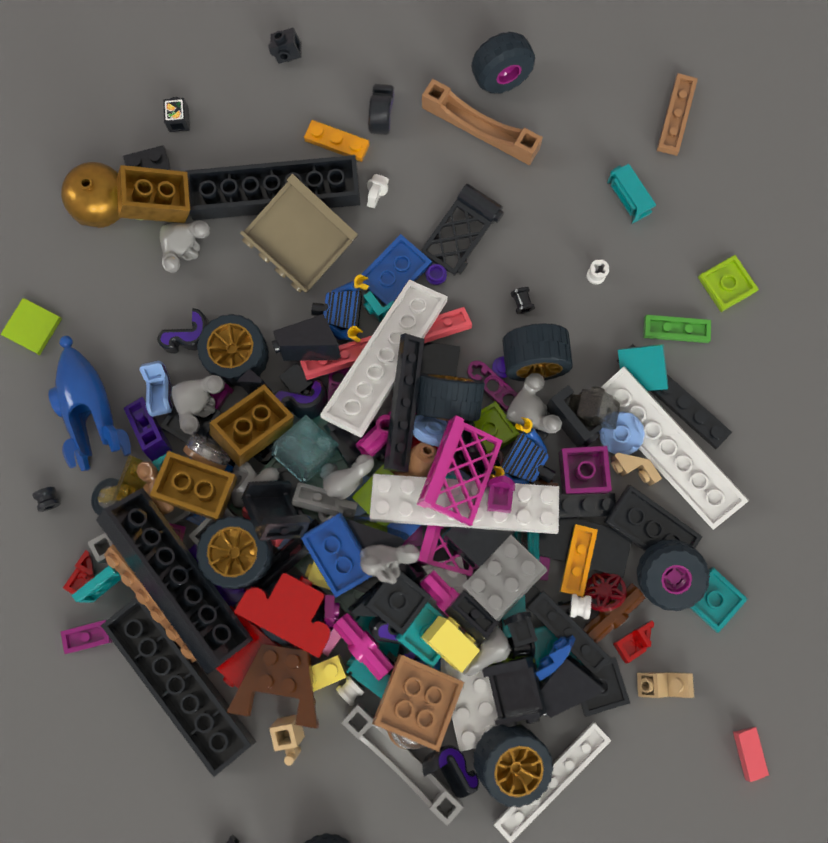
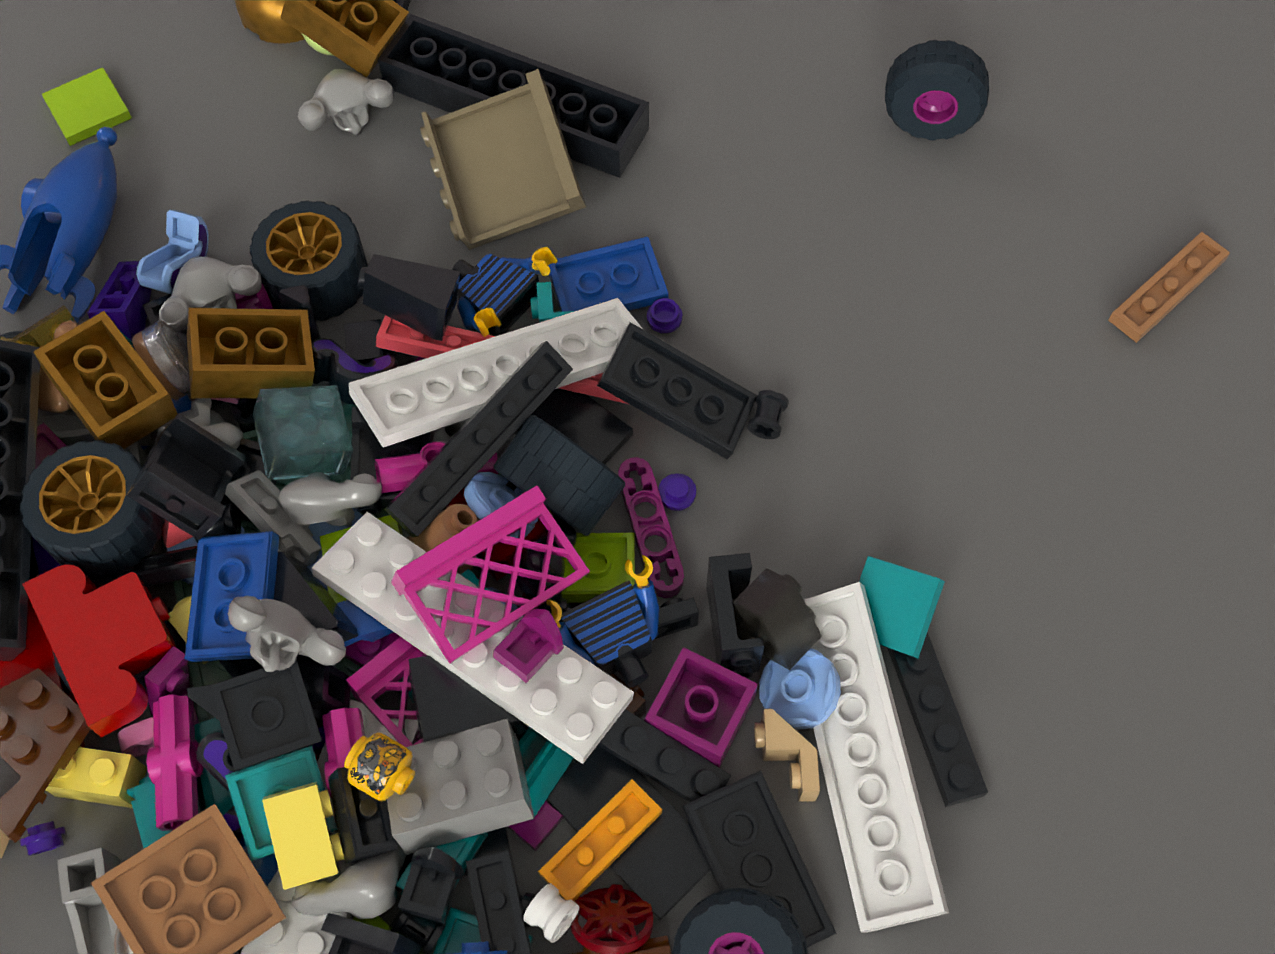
camera: 30 degrees right, 15 degrees down
(188, 338) = (246, 209): animal -> none
(322, 714) = (43, 838): none -> dark purple plate
(336, 140) = (640, 81): light orange plate -> none
(350, 690) = (115, 828): white wheel -> none
(377, 187) = (656, 167): white piece -> none
(380, 109) = (725, 68): black animal -> none
(472, 314) = (677, 390): none -> black tile
(472, 593) = (379, 766): none -> head
(477, 206) = (785, 263): black piece -> none
(514, 141) = (896, 204): medium nougat arch -> none
(530, 406) = (677, 565): light grey head -> none
(538, 350) = (736, 487): black wheel -> none
(596, 265) = (909, 435): white bush -> none
(631, 192) = (1031, 354): teal window -> none
(677, 328) = (989, 583): bright green plate -> none
(728, 283) = (1116, 563): lime tile -> none

